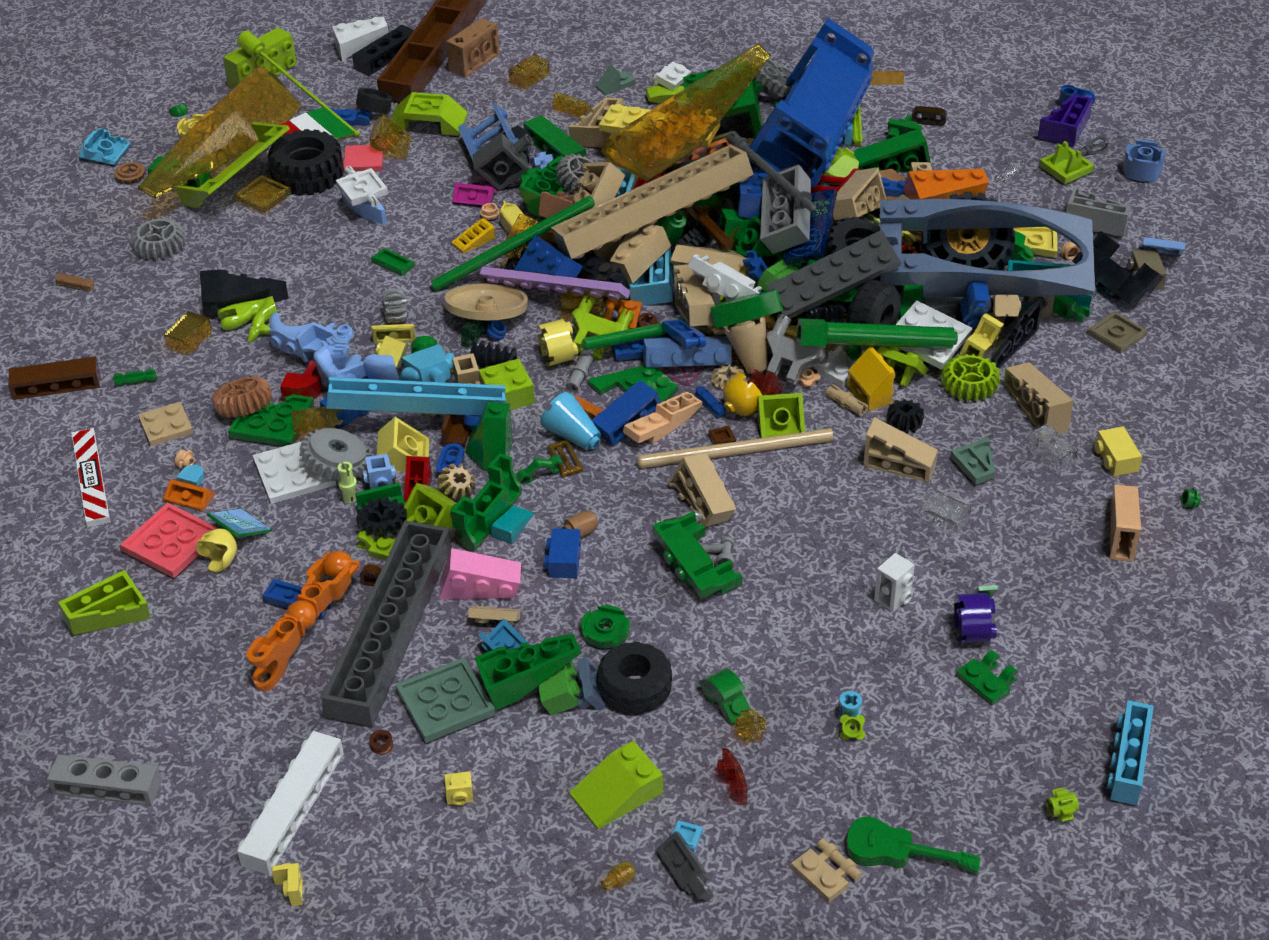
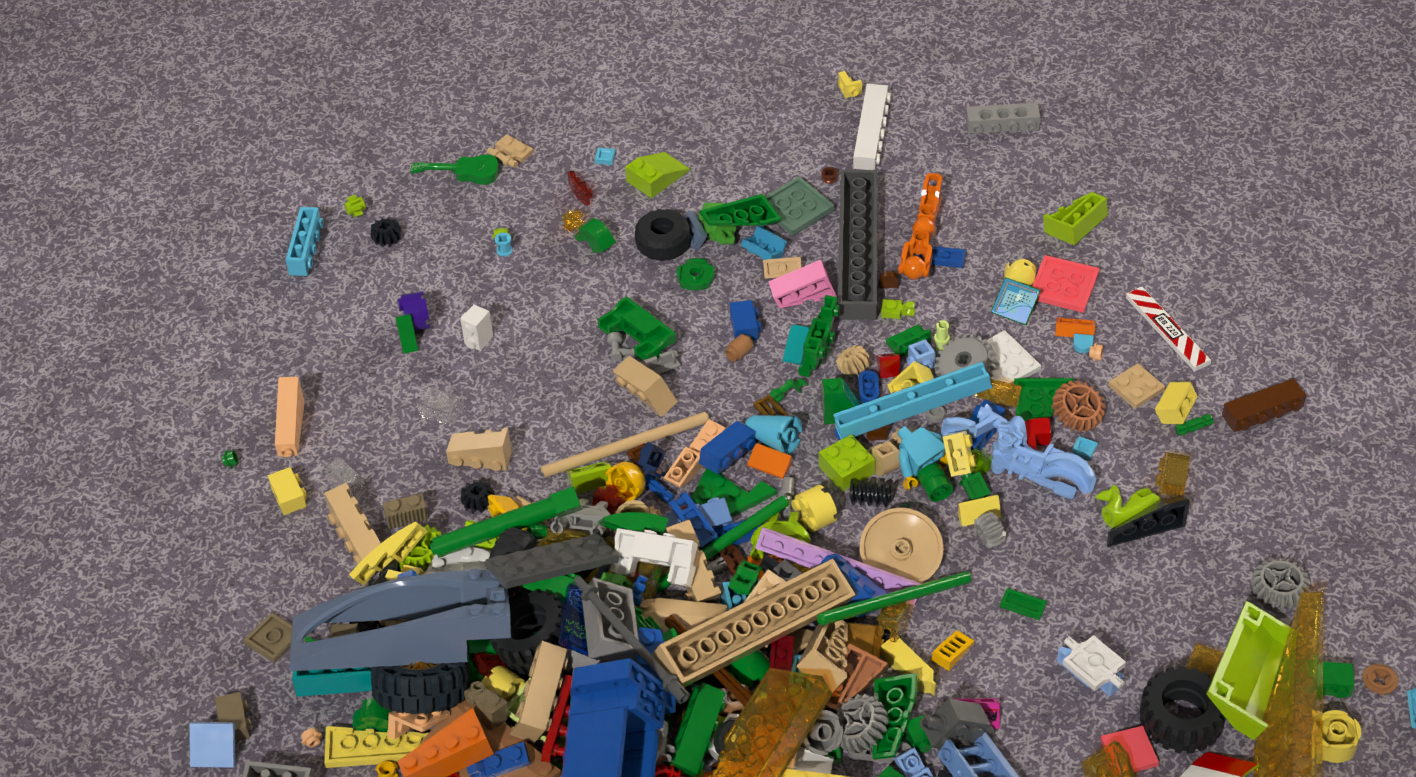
camera: 170 degrees right, 5 degrees up
(74, 282) = (1329, 521): medium nougat axle -> none
(141, 388) = (1176, 403): none -> light yellow brick
(258, 371) = (1084, 448): none -> medium azure tile
(381, 517) = (900, 316): black gear -> none
(429, 506) = (865, 335): lime slope -> none
(458, 788) = (763, 154): light yellow bracket -> none
(489, 211) = (949, 688): light nougat plate -> none
(621, 873) = (642, 126): clear yellow cylinder -> none
(647, 270) = (745, 578): none -> green brick
(685, 866) = (601, 134): flat silver hinge -> none
(711, 405) = (651, 459): none -> dark blue bracket
(975, 461) = (413, 464): sand green wing -> none
(982, 681) = (404, 283): green plate -> none
(984, 409) = (405, 511): none -> dark tan brick
(998, 355) = (394, 547): none -> light yellow slope
(1015, 757) = (385, 232): none -> black gear
(1116, 278) = (278, 702): black bracket -> none

